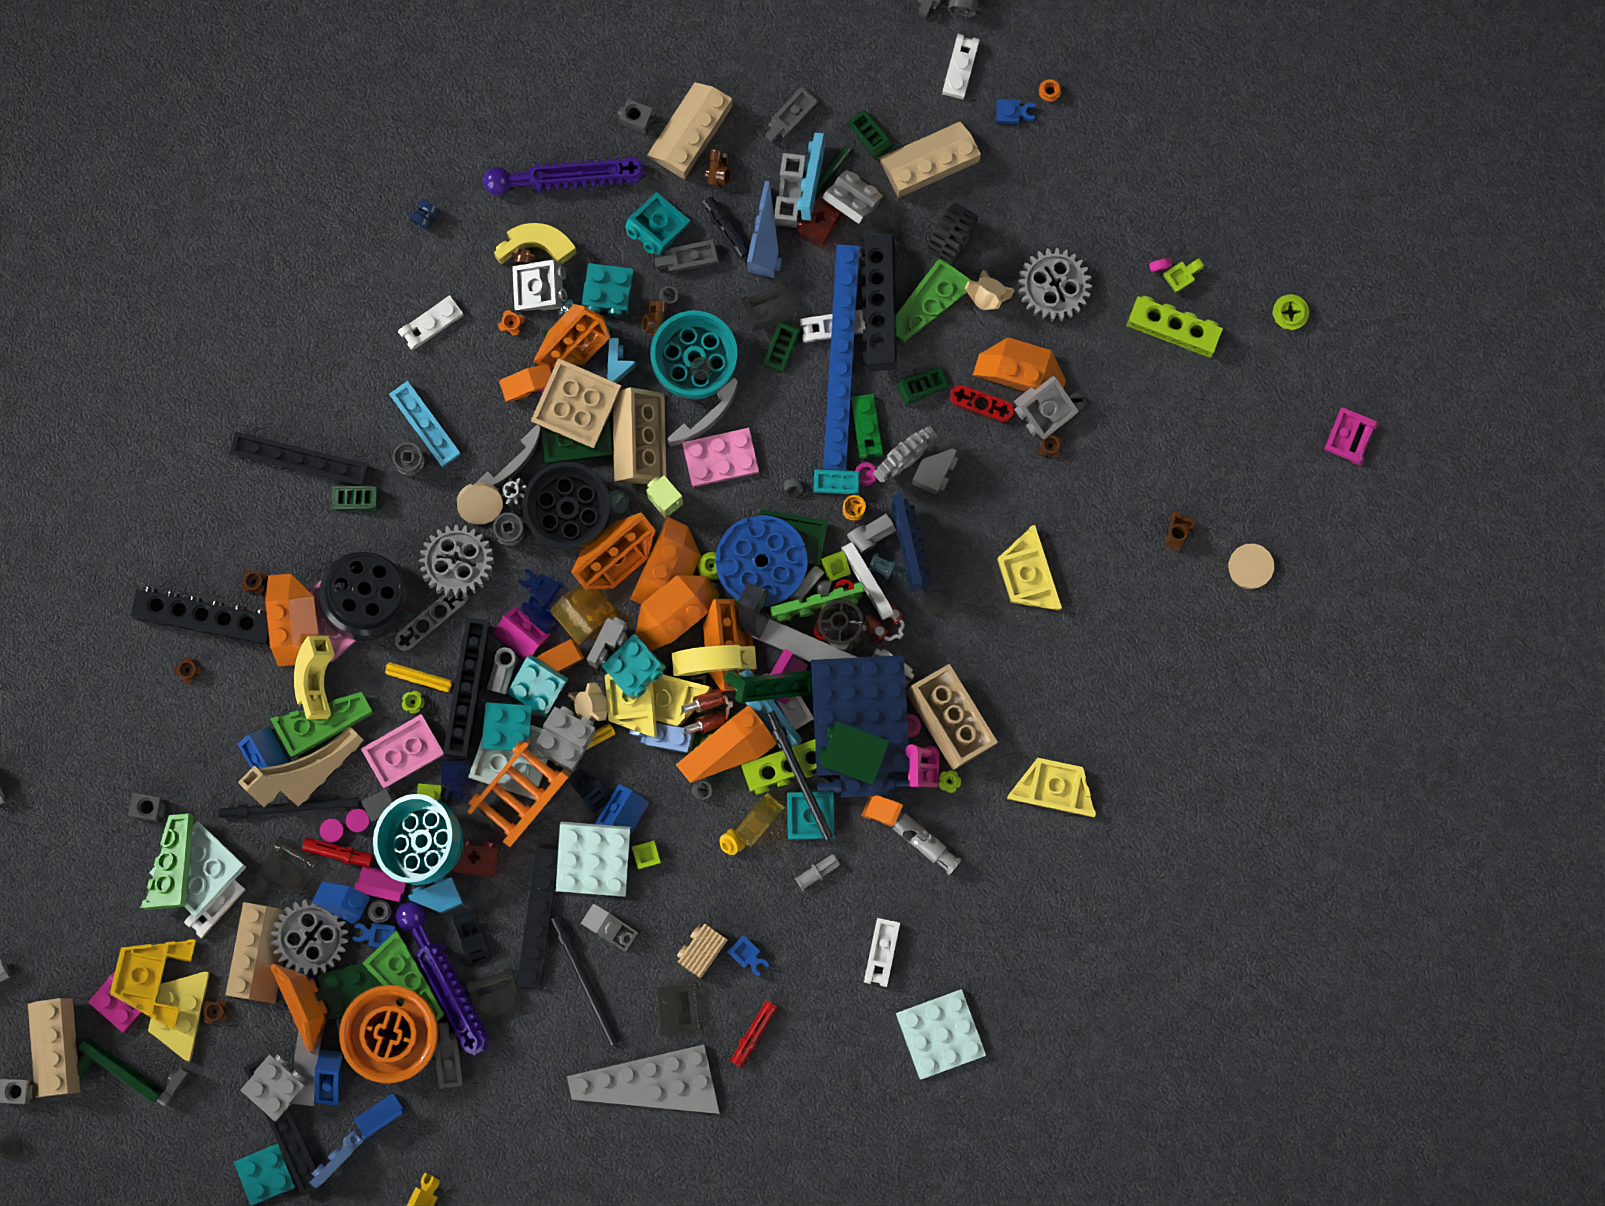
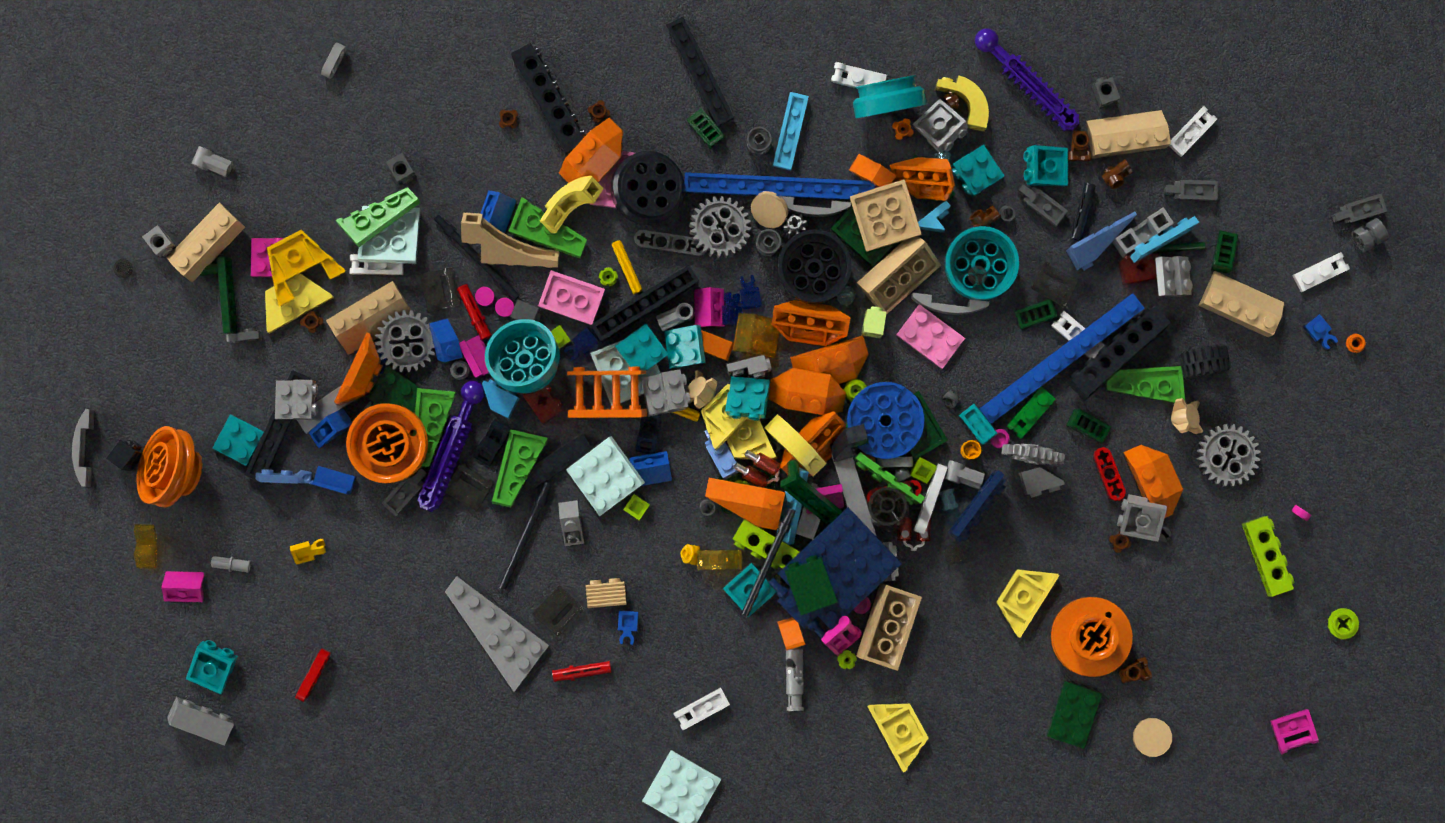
camera: 50 degrees right, 5 degrees up
(377, 935) = (443, 381): blue plate -> none
(424, 214) = (924, 13): dark blue wheel -> none
(471, 308) = (888, 96): none -> teal wheel
(477, 465) = (782, 186): none -> blue plate
(511, 929) = (518, 460): none -> bright green wing
(669, 184) = (1079, 152): none -> reddish brown plate
(737, 72) = (1192, 131): none -> white plate
(817, 872) = (717, 624): light grey axle -> none
(1097, 560) = (1069, 628): none -> orange wheel
(1172, 619) = (1074, 714): none -> dark green plate
(1181, 275) = (1306, 532): lime plate -> none

